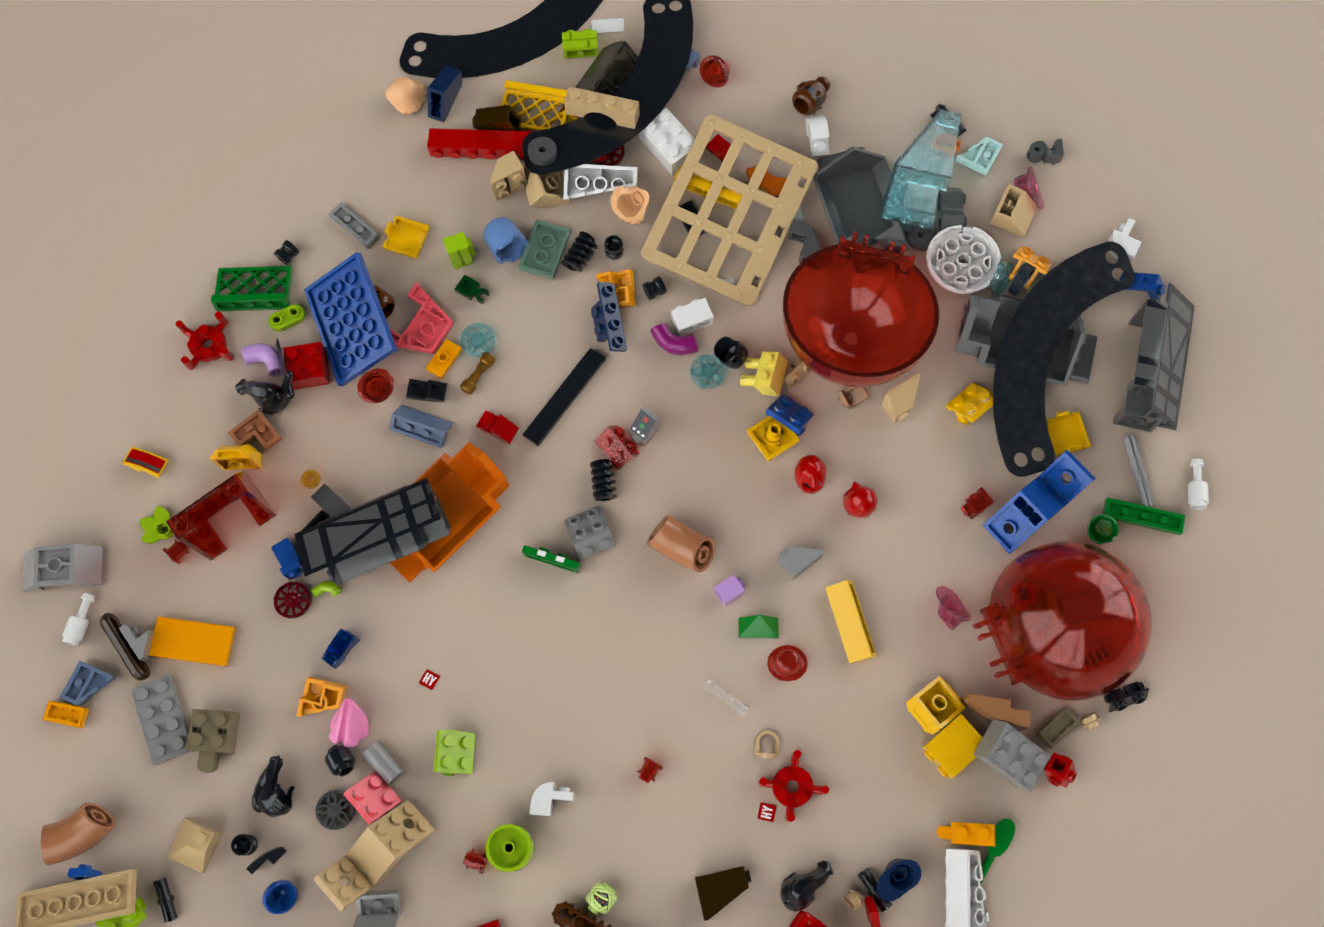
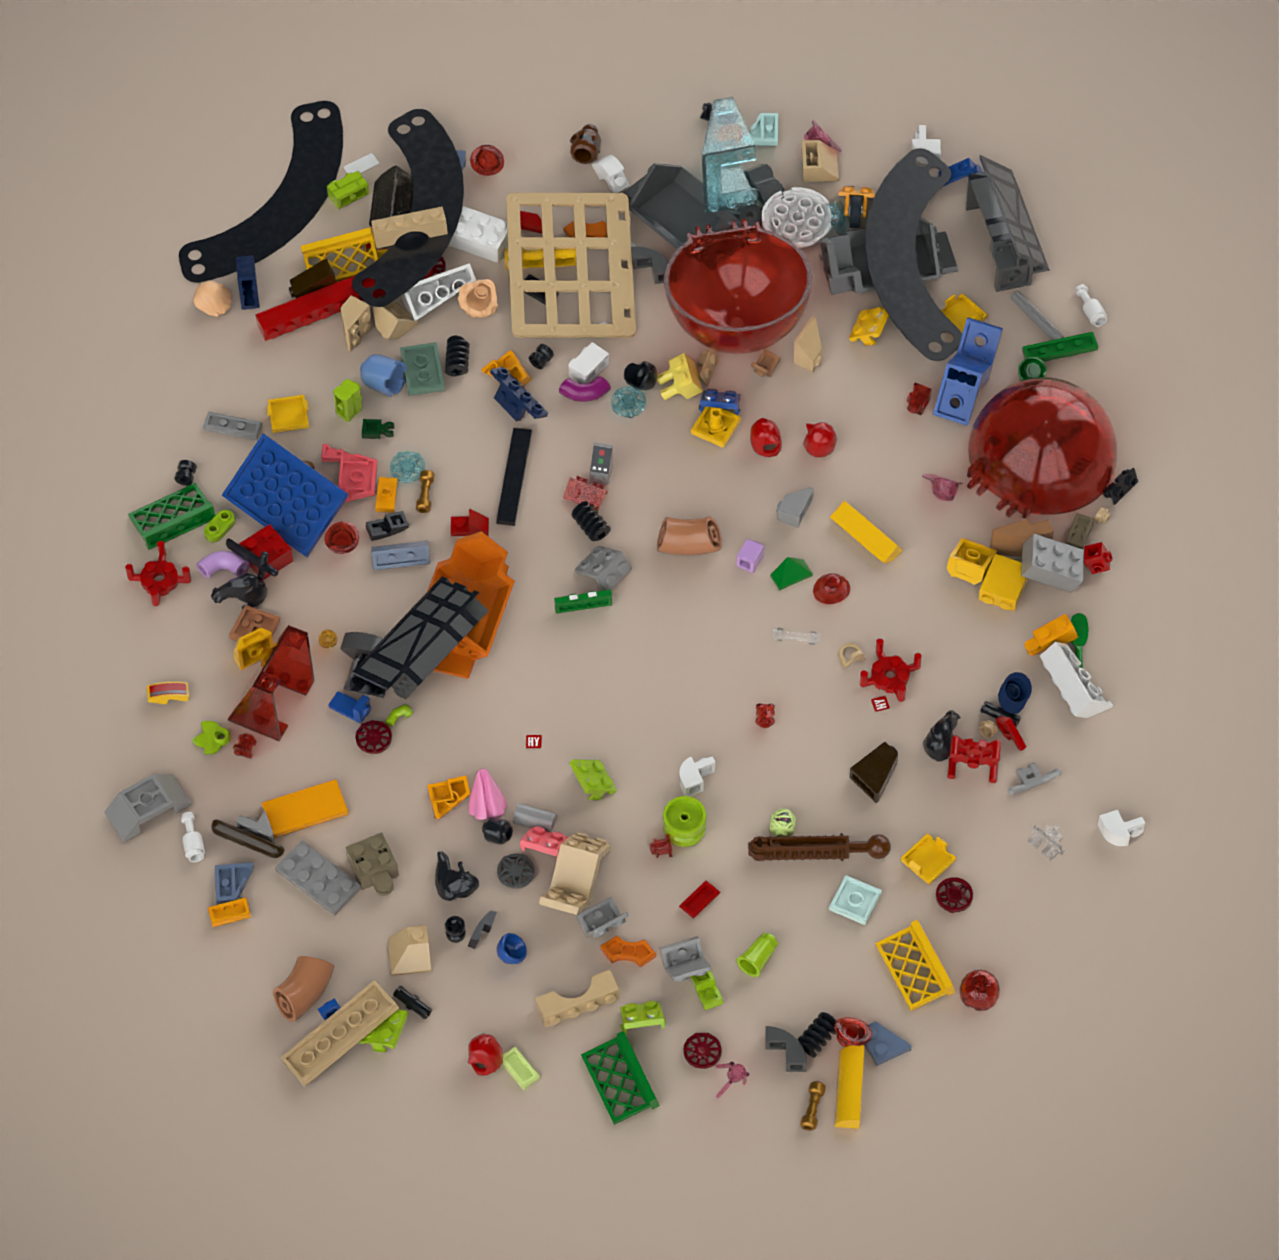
camera: 30 degrees left, 15 degrees down
(339, 648) = (441, 750): clear blue leg -> none
(542, 158) = (376, 278): dark grey piece -> none
(613, 243) = (484, 340): black wheel -> none
(1040, 151) = (813, 105): dark grey leg -> none

